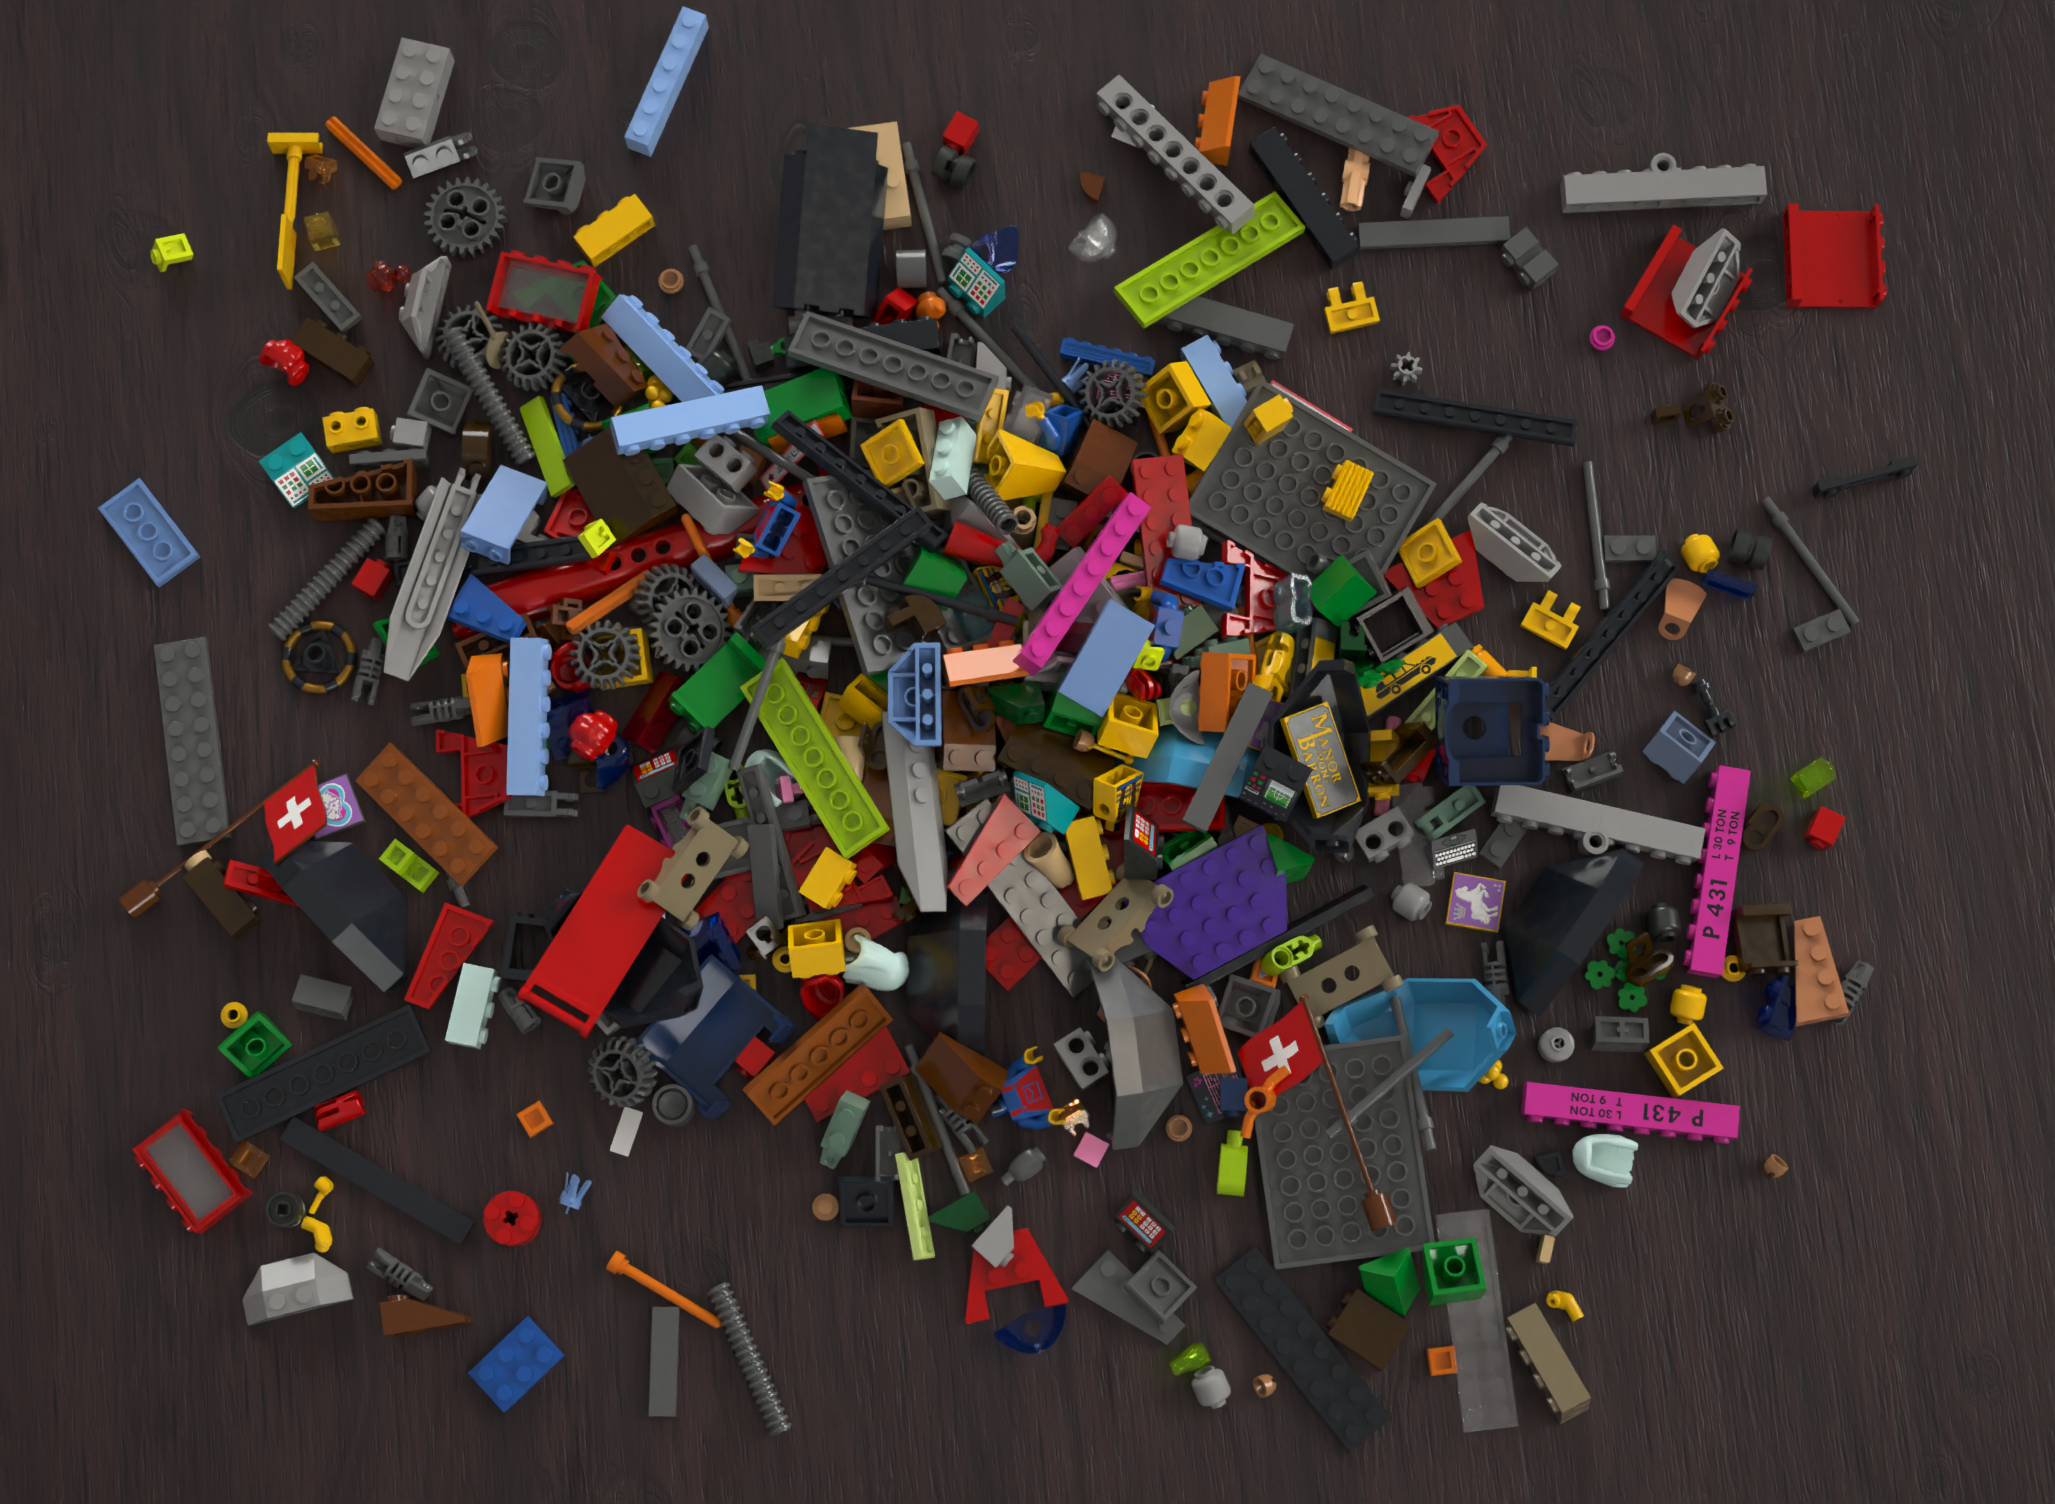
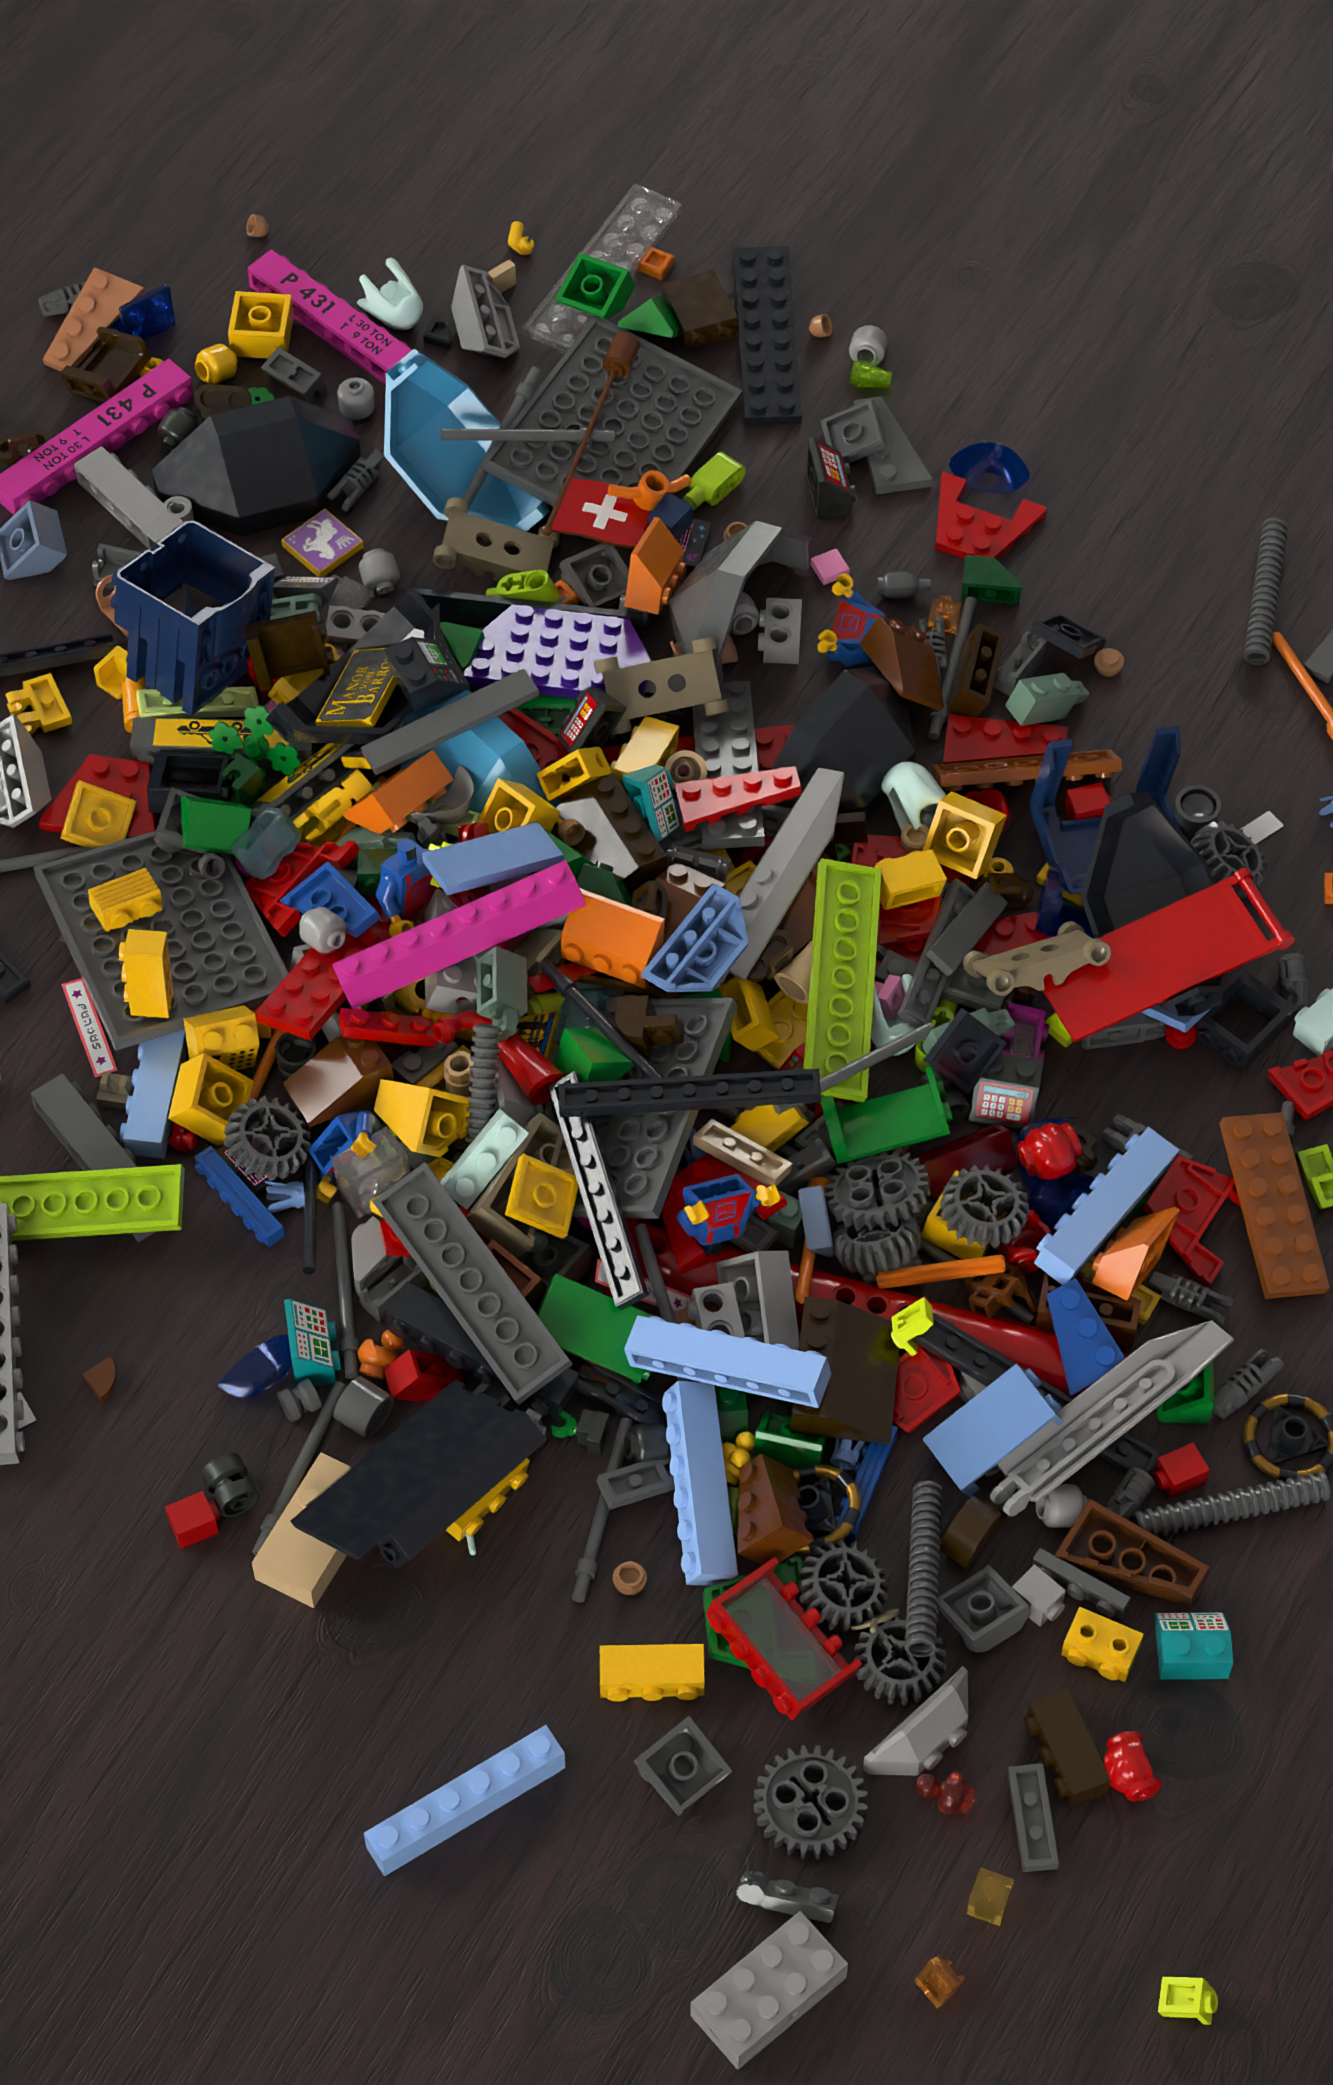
camera: 145 degrees left, 20 degrees down
(294, 146) = (955, 2026): yellow piece -> none
(363, 153) = (877, 1968): orange axle -> none
(547, 446) = (895, 1485): lime tile -> none
(915, 1207) = (1027, 608): yellowish green tile -> none
(997, 1240) = (972, 535): light grey slope -> none
(1074, 1114) = (822, 596): clear orange tile -> none
(1095, 240) = (151, 1312): clear cylinder -> none
(1548, 1363) = (572, 201): dark tan wedge -> none

